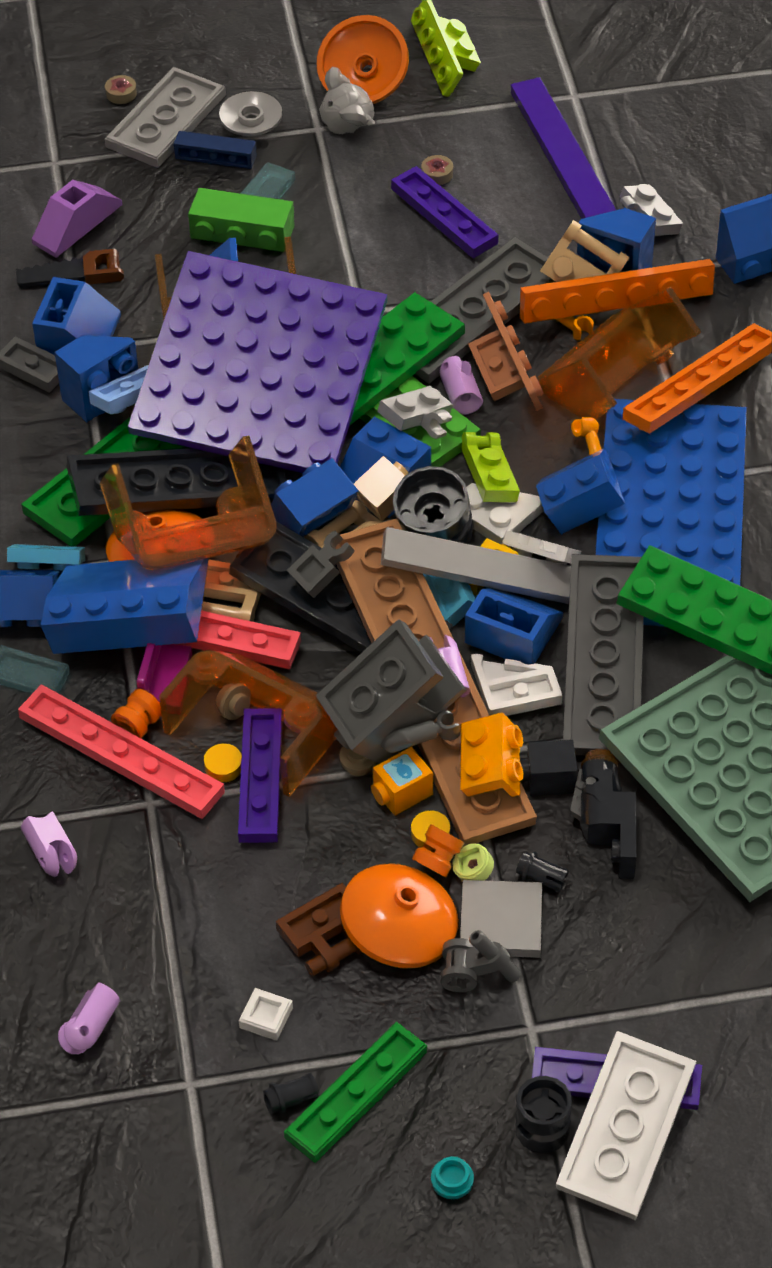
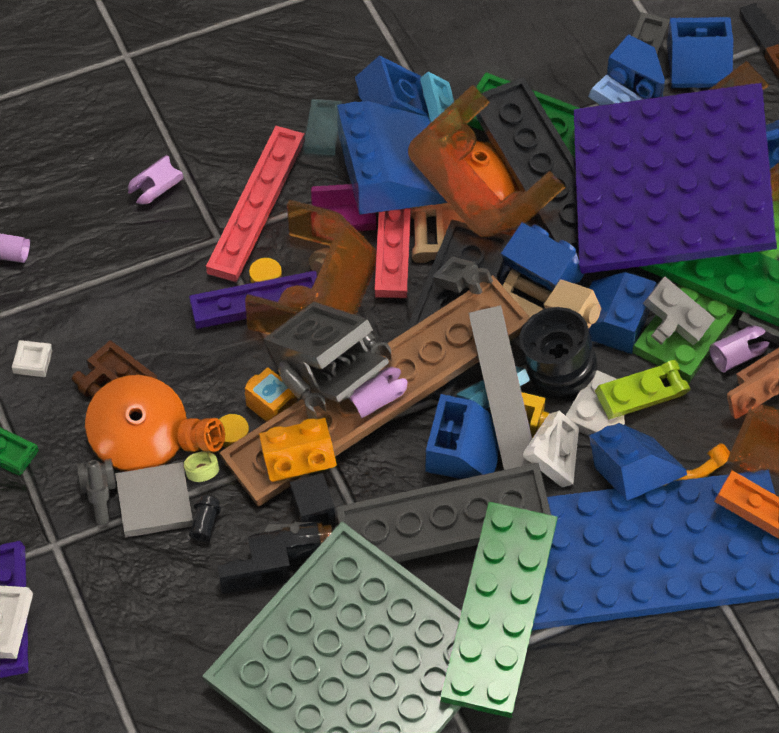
camera: 75 degrees right, 5 degrees up
(139, 712) = (284, 194): orange wheel -> none
(515, 686) = (397, 457): white wing -> none

